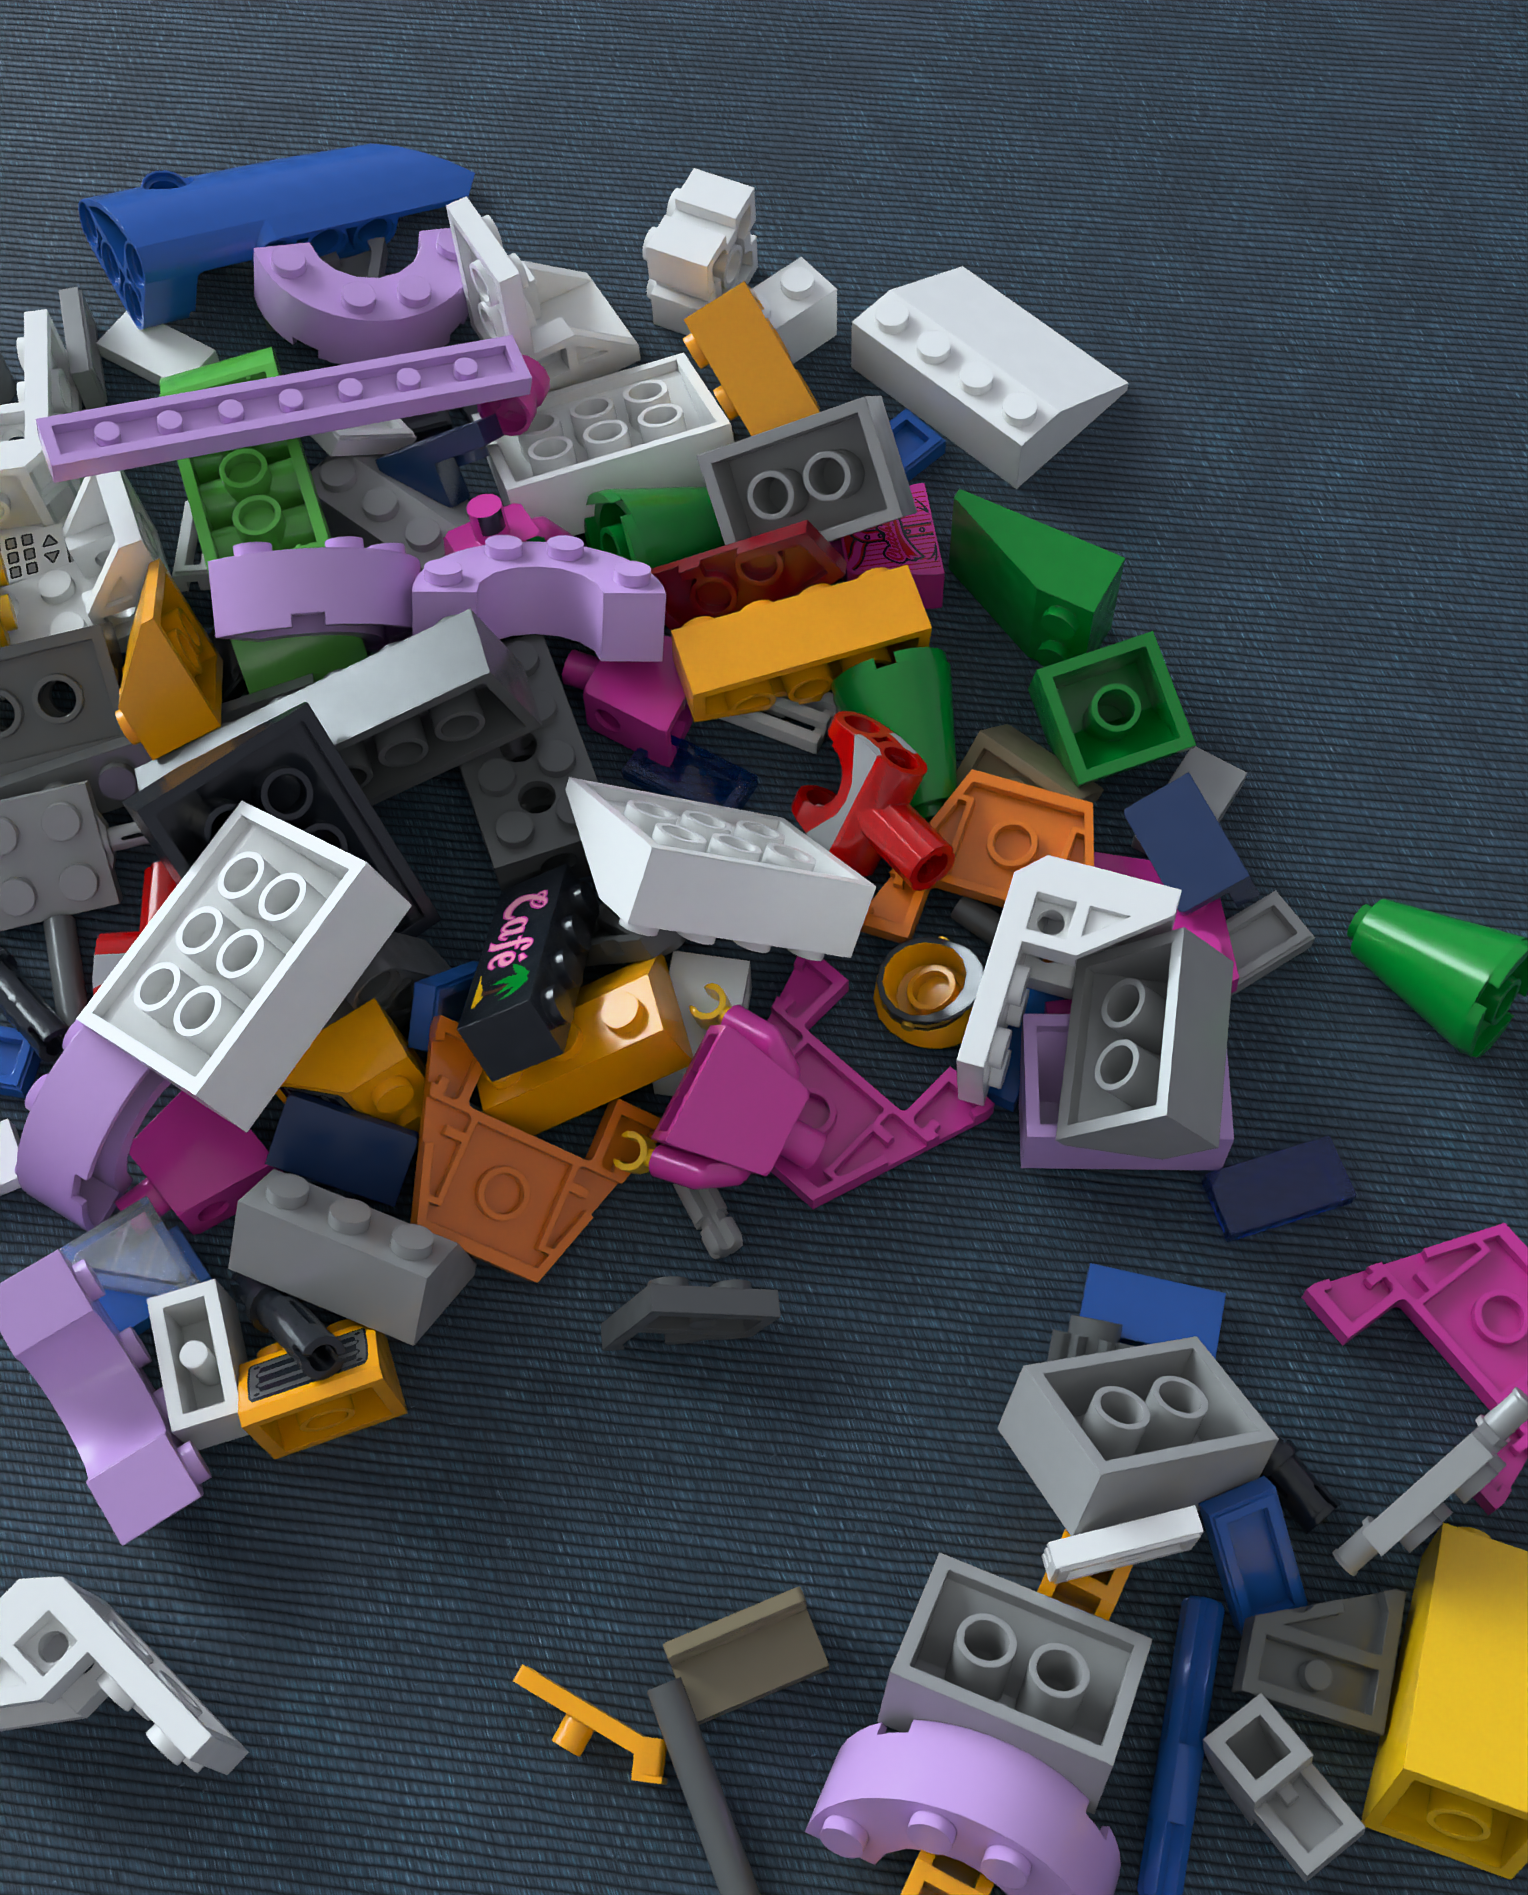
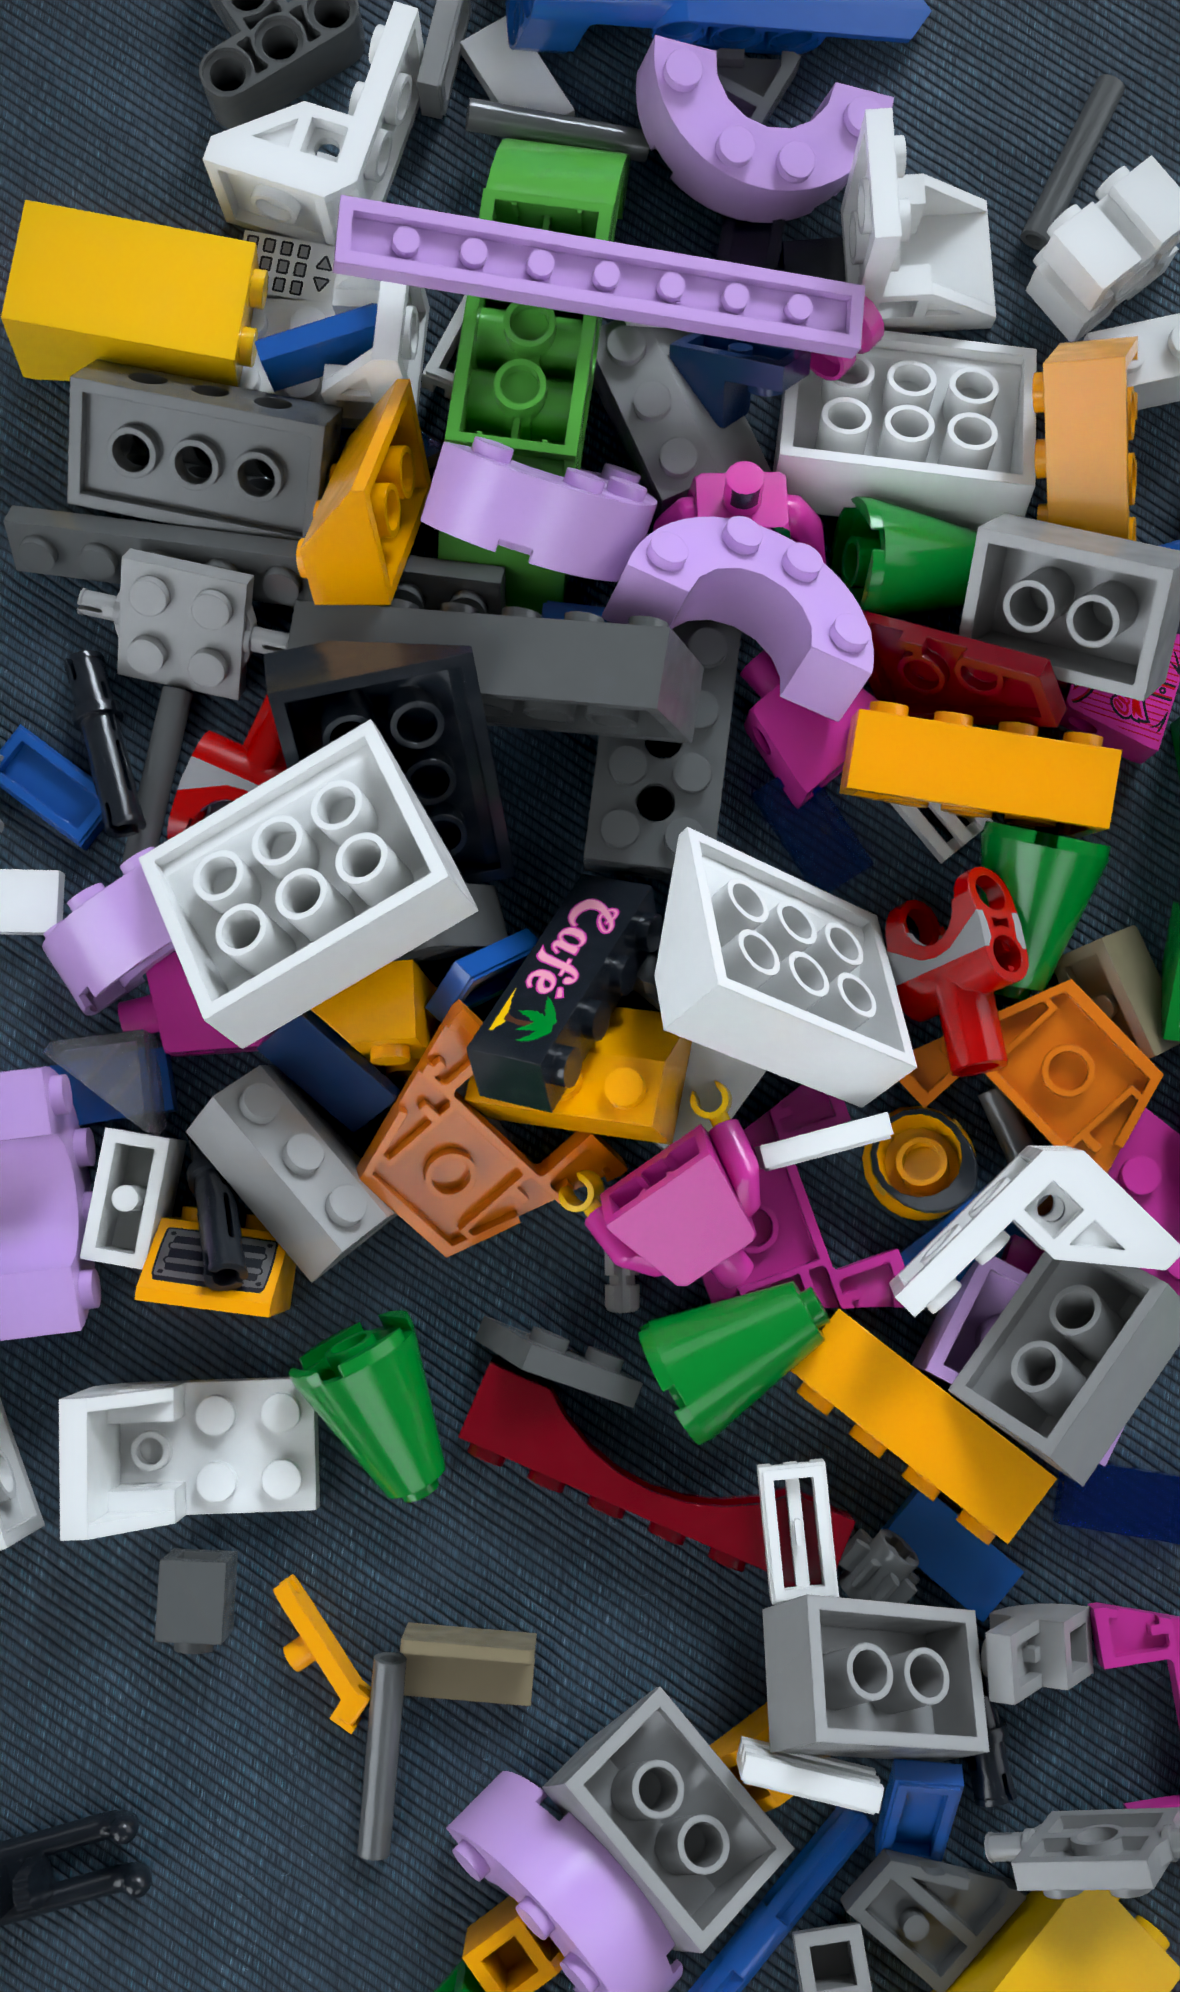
camera: 25 degrees right, 20 degrees up
(55, 597) = (303, 351): none -> blue tile
(147, 375) = (554, 128): none -> dark grey piece
(356, 1594) = (183, 1448): none -> white bracket
(438, 1731) = (196, 1599): none -> dark grey brick
(535, 1440) = (377, 1403): none -> green cone
(641, 218) = (1073, 159): none -> dark grey piece
(690, 1391) = (527, 1423): none -> dark red arch
(832, 996) = (824, 1142): none -> white tile
(844, 1216) = (731, 1352): none -> green cone
(962, 1348) = (791, 1472): none -> white tile
(1063, 1203) = (924, 1427): none -> light orange wedge
(1276, 1349) = (1036, 1649): none -> light grey brick

